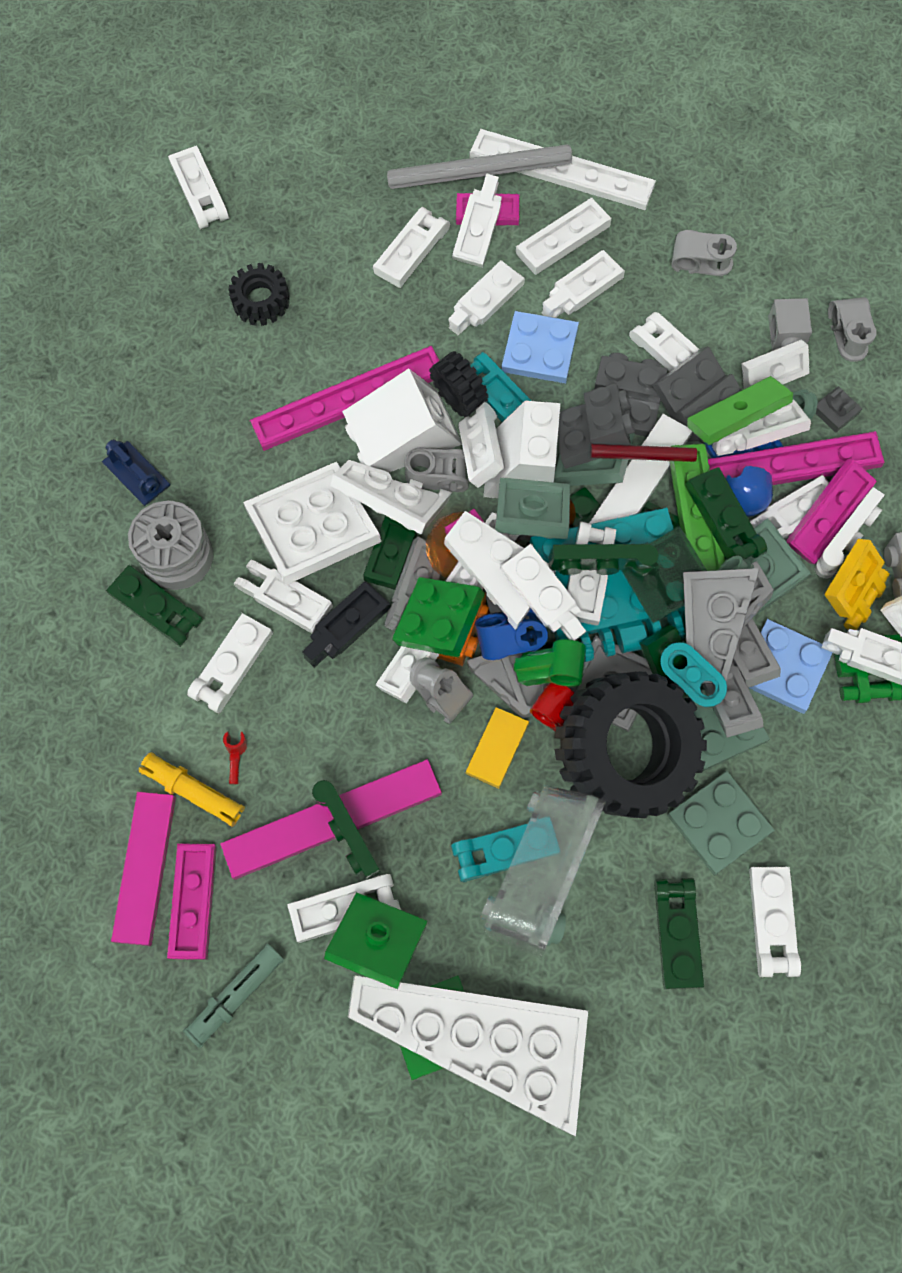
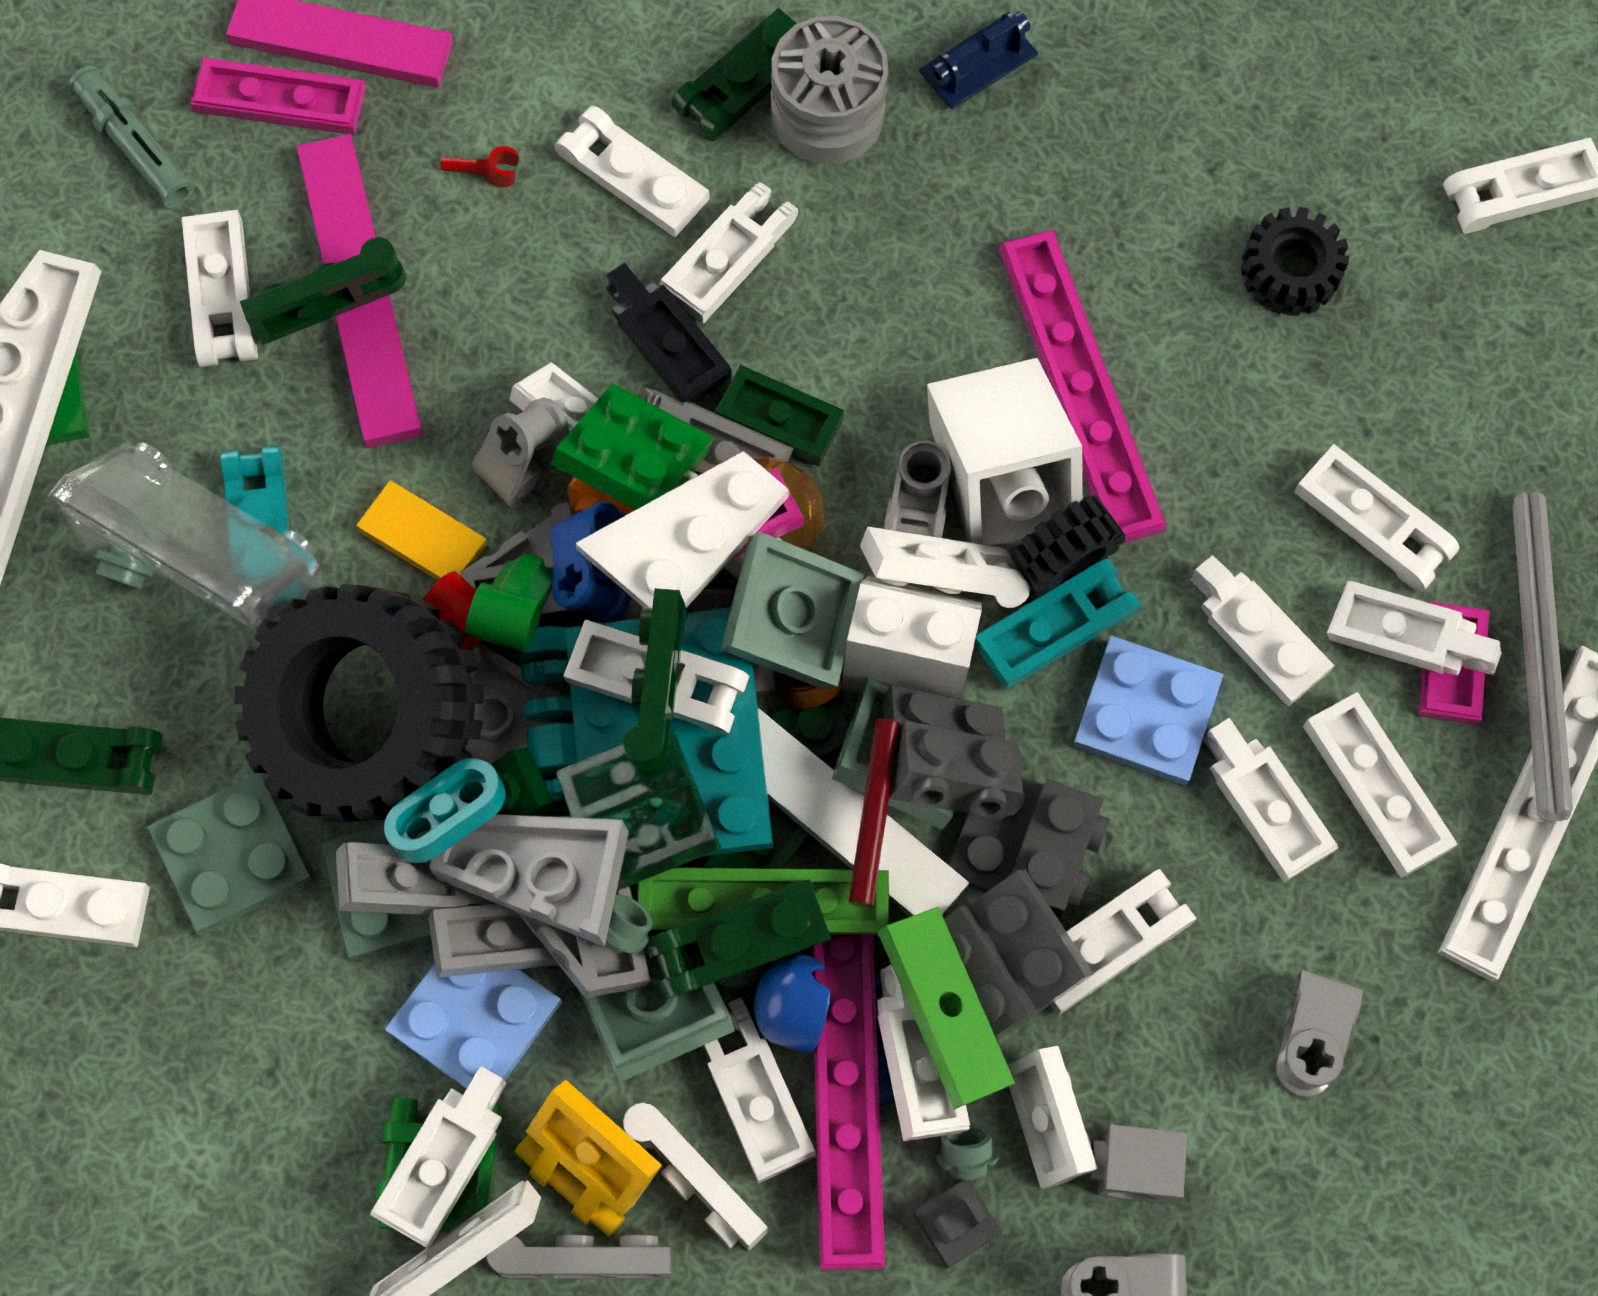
camera: 90 degrees right, 0 degrees up
(180, 782) = (455, 86): yellow pin -> none
(310, 524) = (844, 297): white plate -> none
(376, 940) = (144, 305): green plate -> none
(399, 501) = (863, 420): white wing -> none
(543, 592) = (615, 585): white hinge -> none
(831, 511) = (739, 1147): dark pink tile -> none

